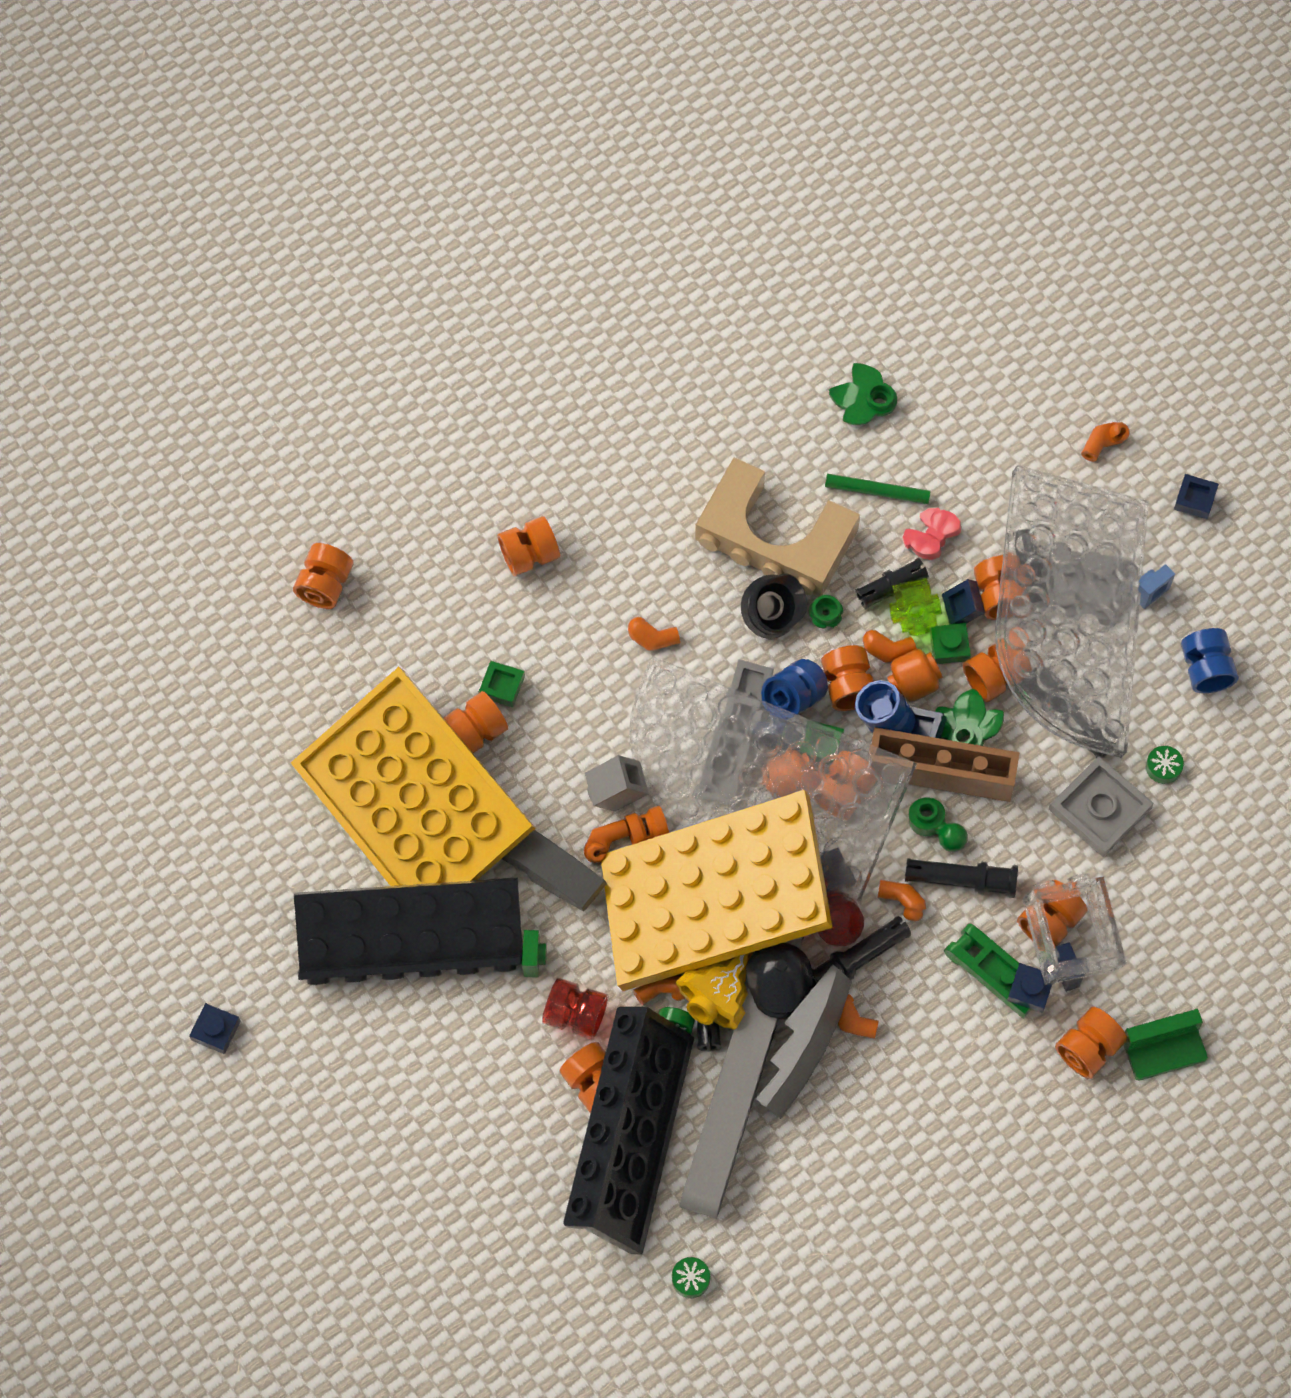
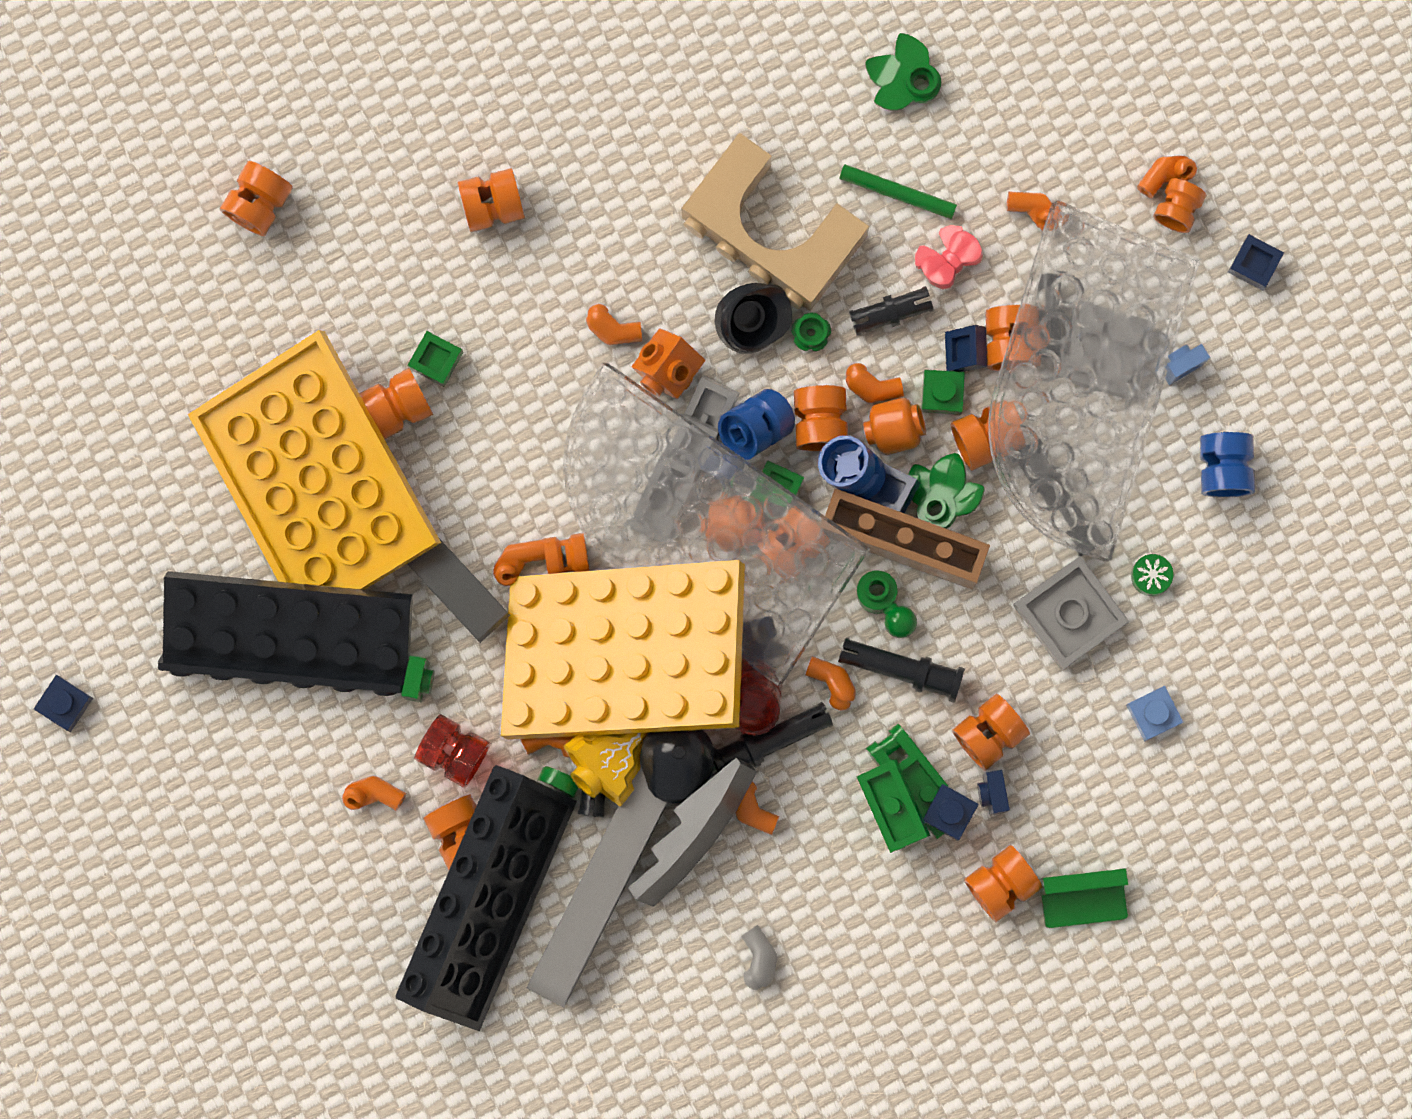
camera: 10 degrees right, 15 degrees up
(507, 1058) = (372, 790): none -> orange arm
(616, 783) = (540, 500): light grey brick -> none
(690, 1277) = (526, 1065): green tile -> none
(707, 652) = (667, 364): none -> orange brick
(889, 1147) = (763, 960): none -> light grey arm
(908, 596) = (909, 346): clear neon green brick -> none
(980, 988) = (893, 806): none -> green panel
(998, 481) = (1035, 204): none -> orange arm
(1103, 920) = (1044, 796): clear window -> none
(1121, 461) = (1180, 203): none -> orange wheel
(1192, 880) = (1154, 713): none -> medium blue plate

